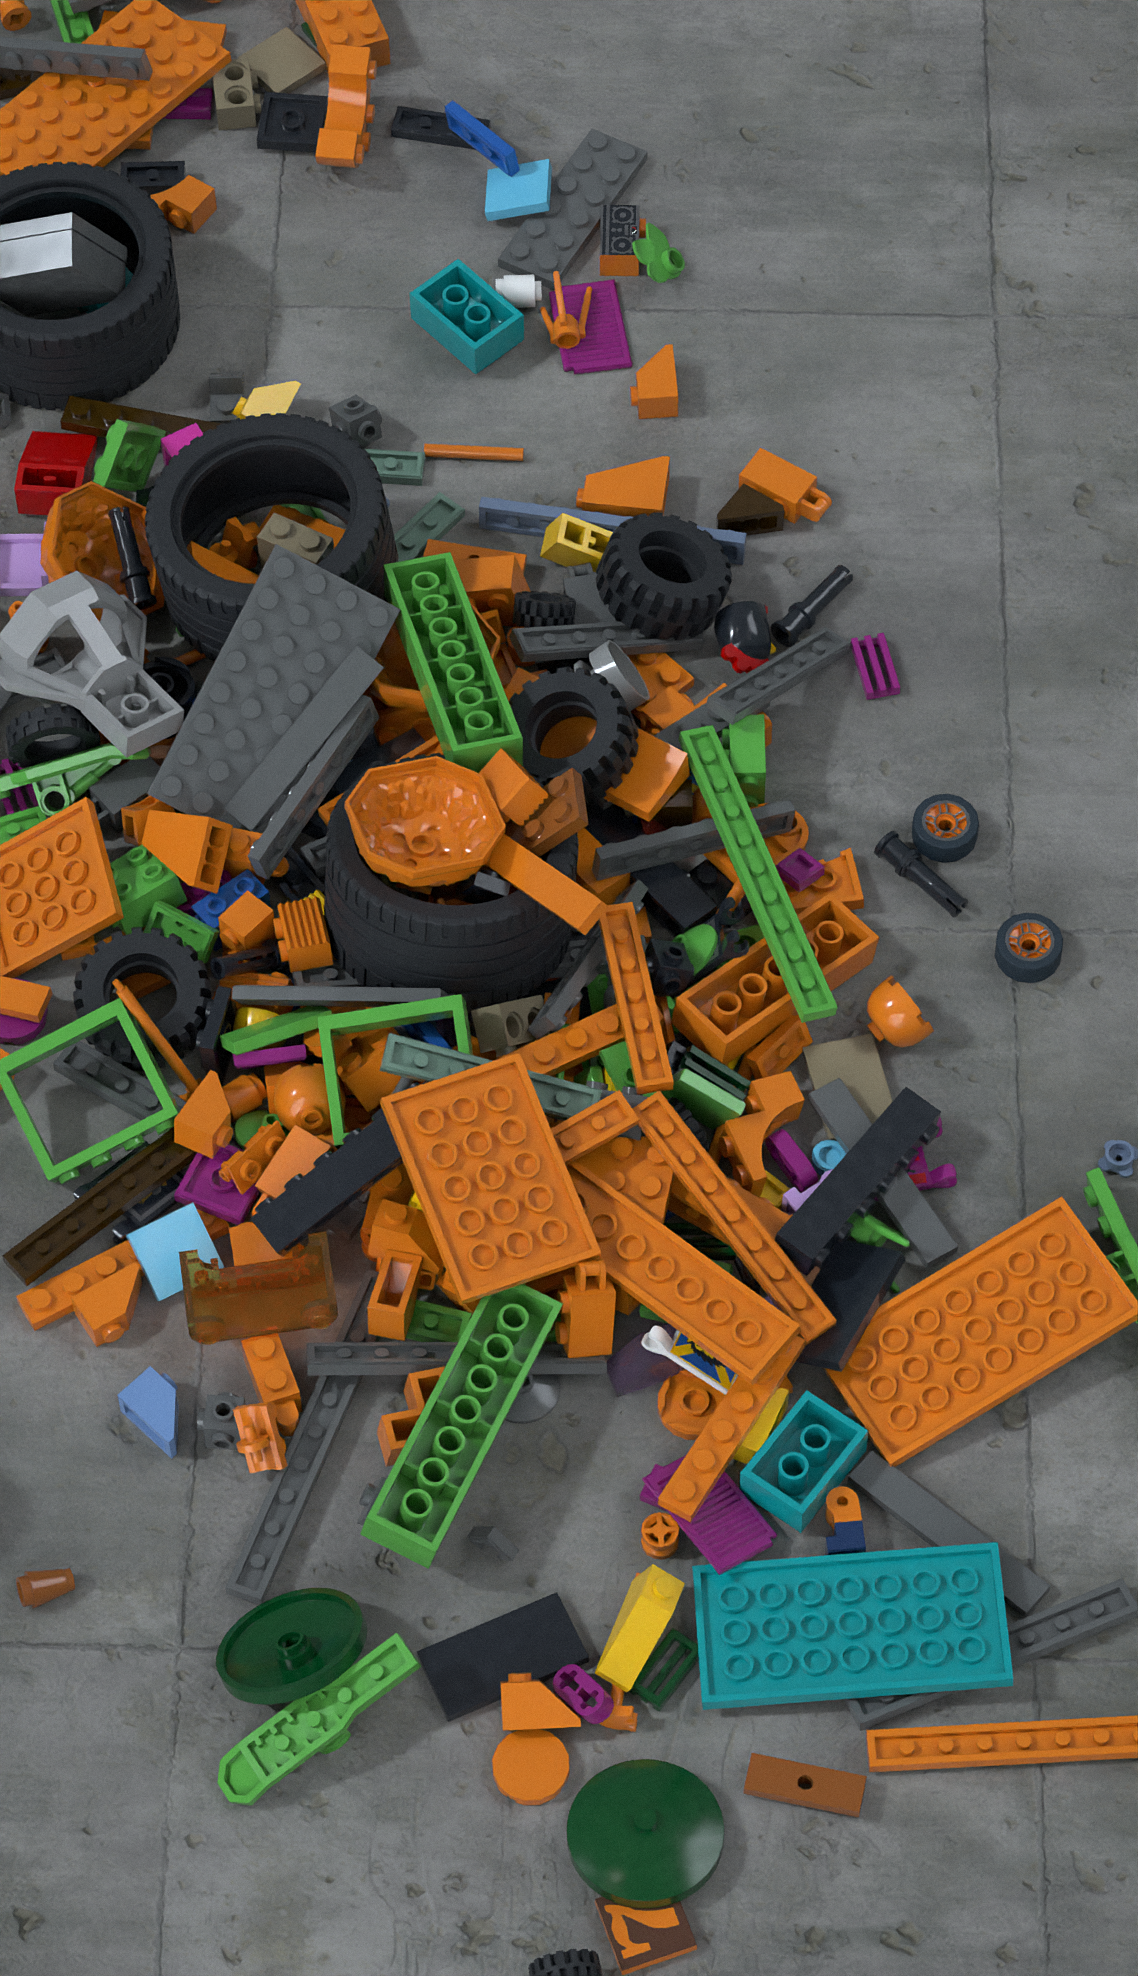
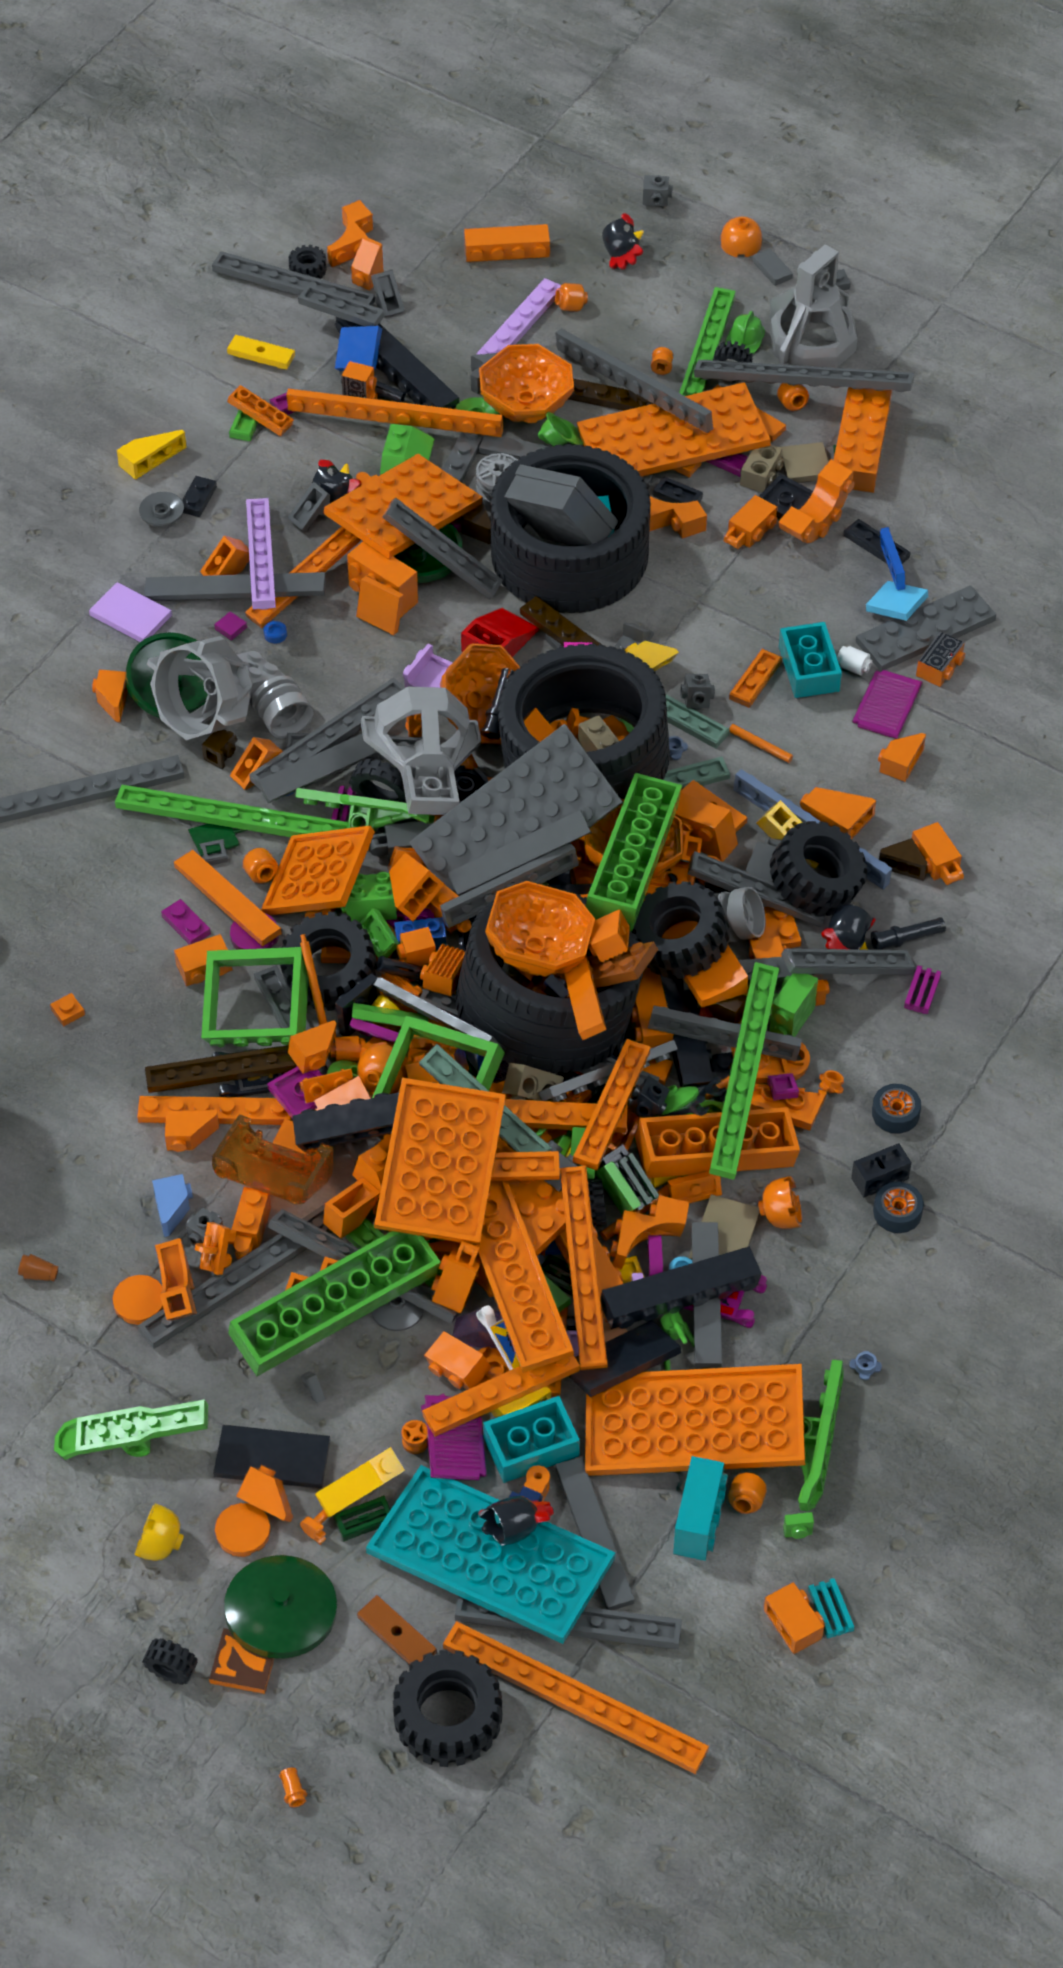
camera: 30 degrees right, 5 degrees down
(128, 455) = (536, 638): bright green plate -> none
(159, 1246) = (250, 1104): medium azure tile -> none
(199, 1553) = (137, 1298): none -> orange tile
(239, 1504) = (176, 1280): none -> orange arch
(271, 173) = (751, 523): none -> orange brick
(291, 1646) = (146, 1377): dark green dish -> none
(410, 371) = (755, 678): none -> orange tile
(440, 1830) = (159, 1534): none -> yellow cylinder
(543, 609) = (729, 852): black tyre -> none
(566, 330) = (867, 694): orange plant -> none
(587, 1689) = (296, 1503): magenta beam -> none
(650, 1416) = (456, 1361): none -> orange brick
(661, 259) = (956, 678): bright green plate -> none
(849, 834) = (832, 1082): none -> orange plate
(867, 1560) = (517, 1516): none -> black piece
(909, 863) = (858, 1118): black pin -> none
(942, 1792) = (441, 1674): none -> black tyre
(983, 912) = (880, 1169): none -> black brick
(1057, 1434) = (700, 1508): none -> teal brick
(1092, 1385) = (747, 1493): none -> orange head

